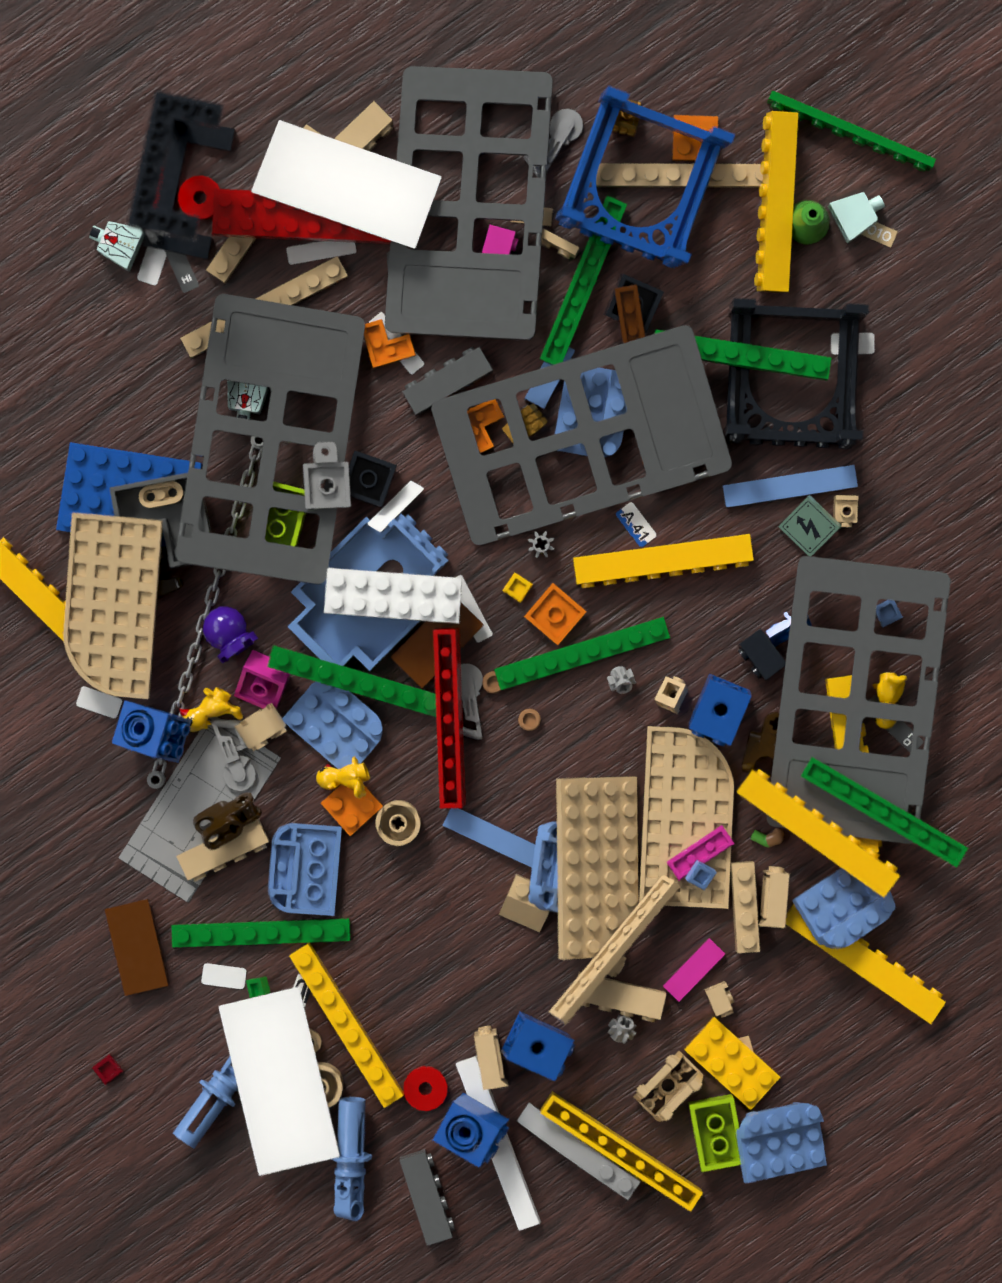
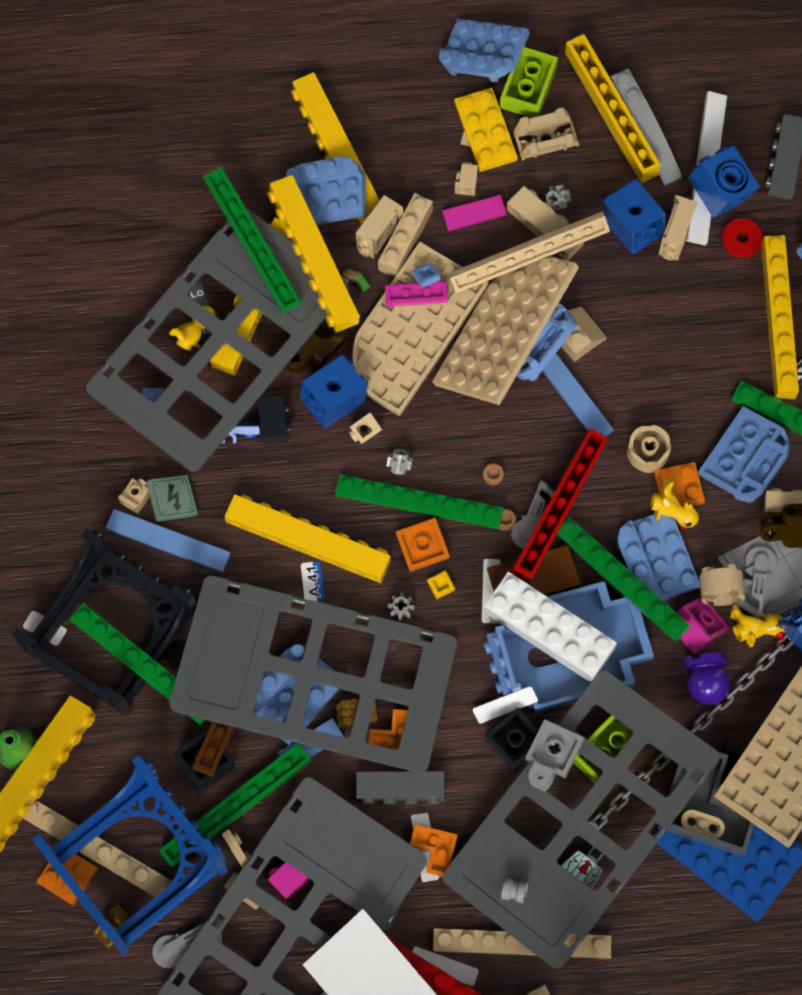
camera: 150 degrees left, 15 degrees down
(292, 340) = (514, 890): none -> light grey wheel

